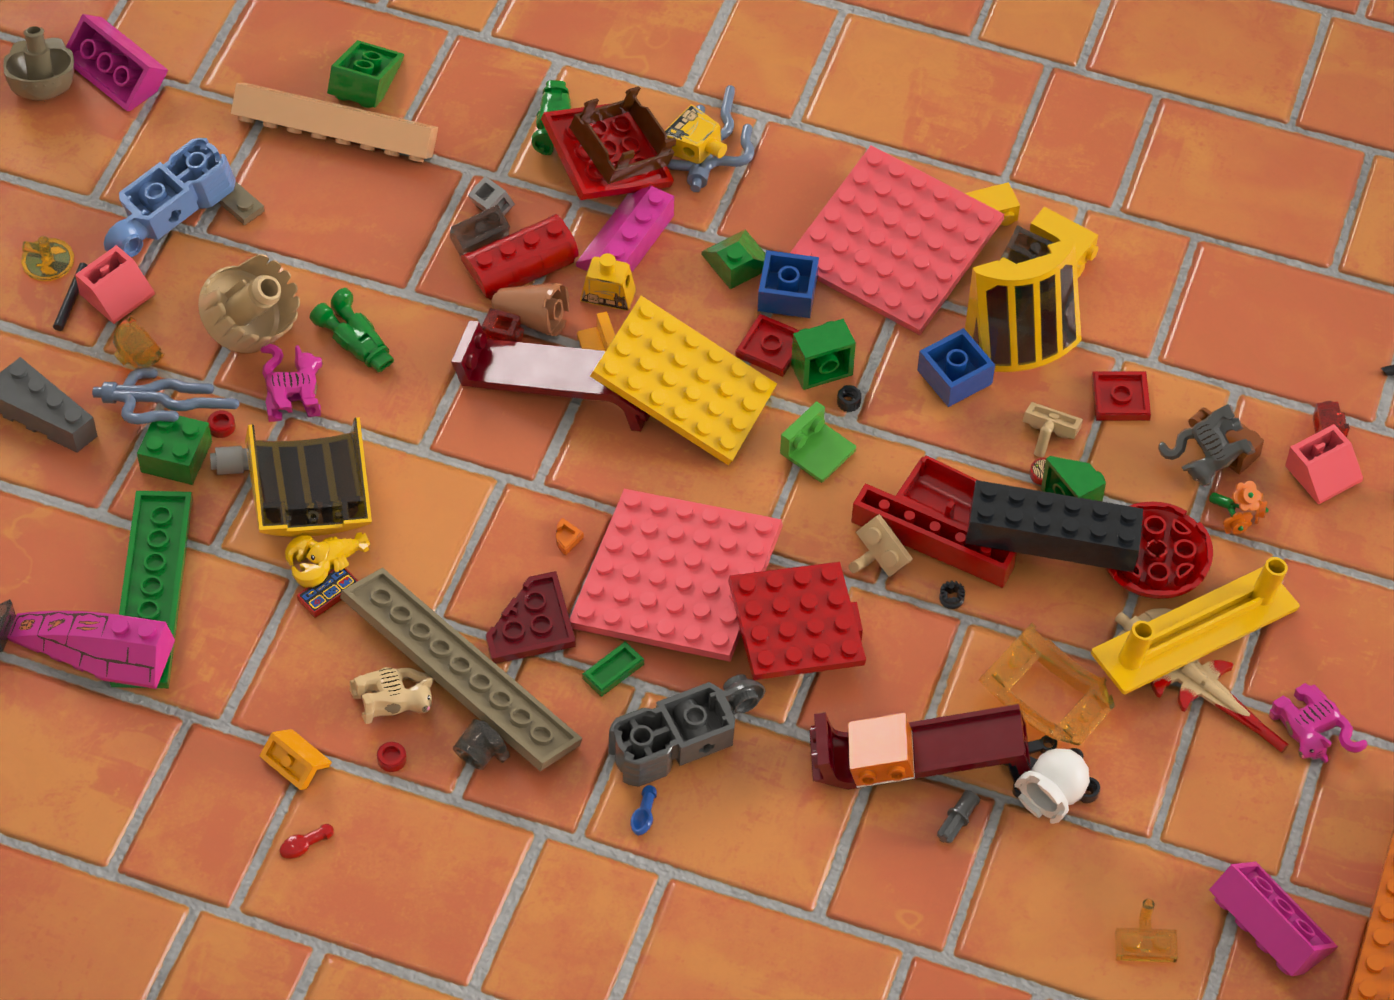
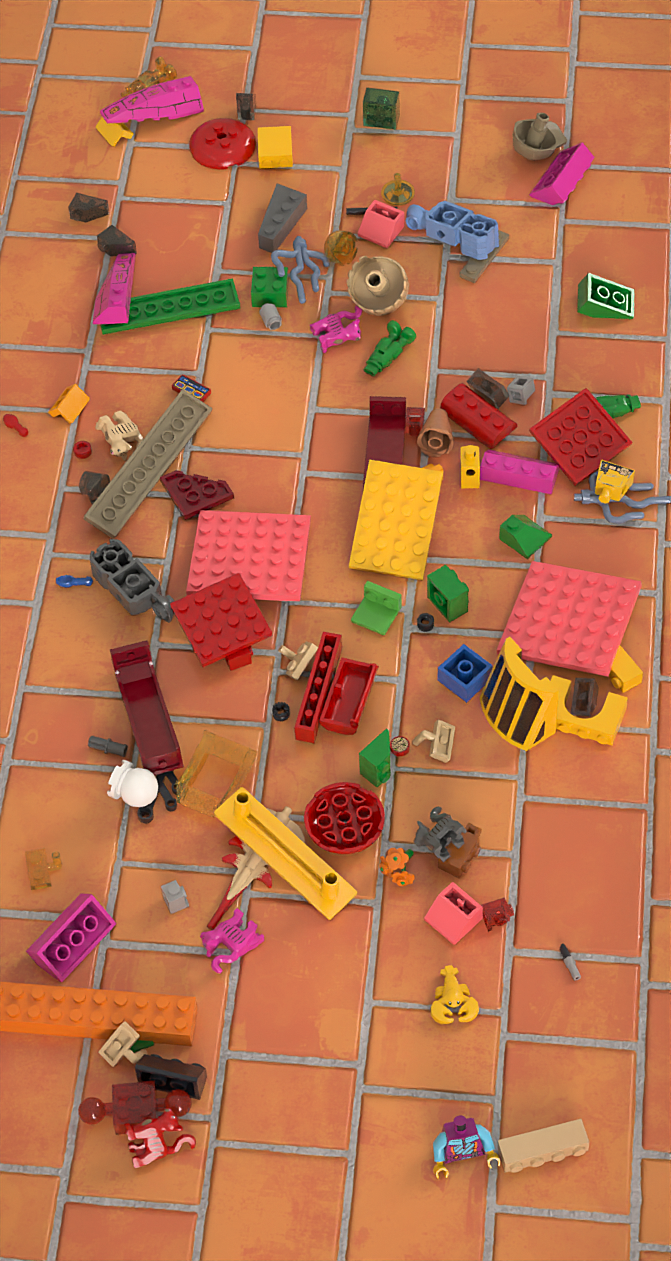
camera: 80 degrees right, 0 degrees up
(221, 423) = (298, 308): red tile -> none
(309, 484) = (261, 350): clear smoke windscreen -> none
(325, 555) = (213, 379): yellow animal -> none
(335, 121) = (553, 293): light nougat brick -> none
(567, 536) = (267, 497): orange tile -> none
(599, 154) = (556, 439): reddish brown piece -> none
(613, 669) = (173, 542): green tile -> none
(768, 345) = (462, 564): red tile -> none
(788, 284) = (504, 563): blue brick -> none
(881, 750) = (135, 686): piece -> none
(1054, 526) = (332, 745): black brick -> none
(1121, 396) = (482, 781): red tile -> none
(1232, 771) = (174, 896): none -> light grey brick

